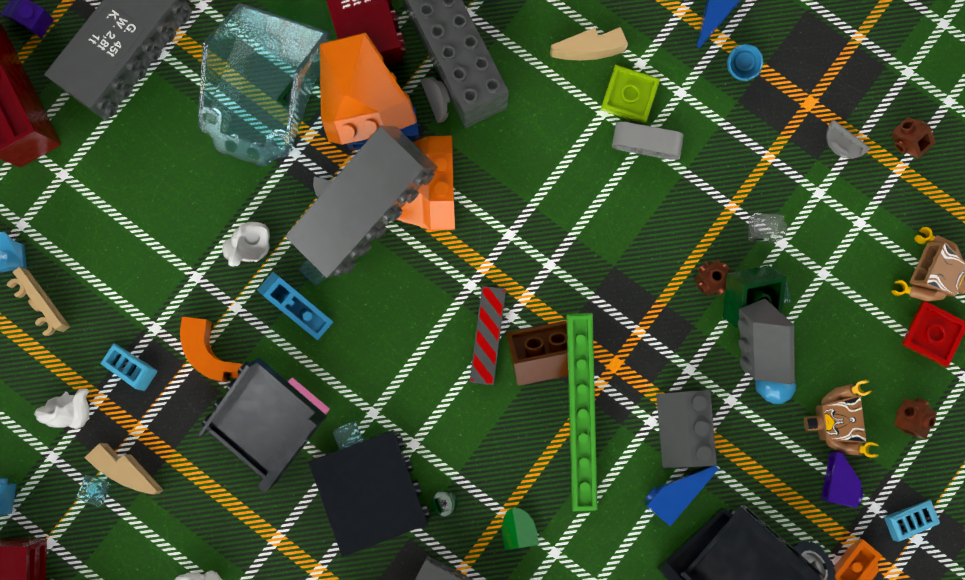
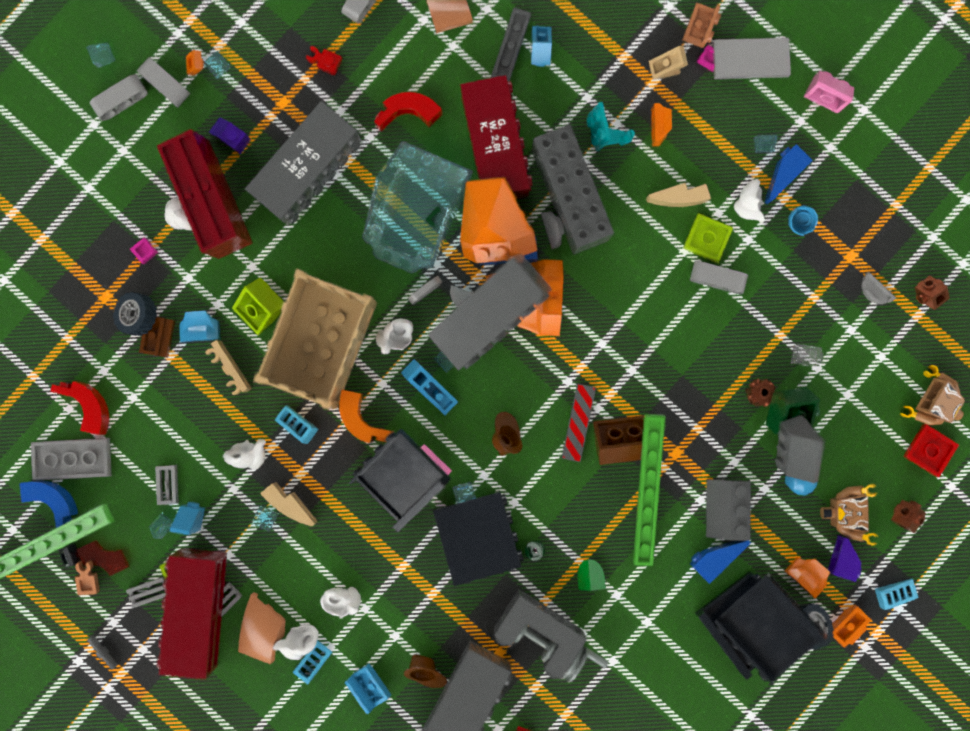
camera: 10 degrees right, 5 degrees up
(72, 220) = (258, 305): none -> lime slope
(145, 255) = (316, 340): none -> tan container
(281, 185) = (425, 290): none -> light grey tile
(397, 357) = (507, 434): none -> reddish brown piece
(678, 45) = (750, 202): none -> white hair
(798, 506) = (809, 575): none -> orange slope

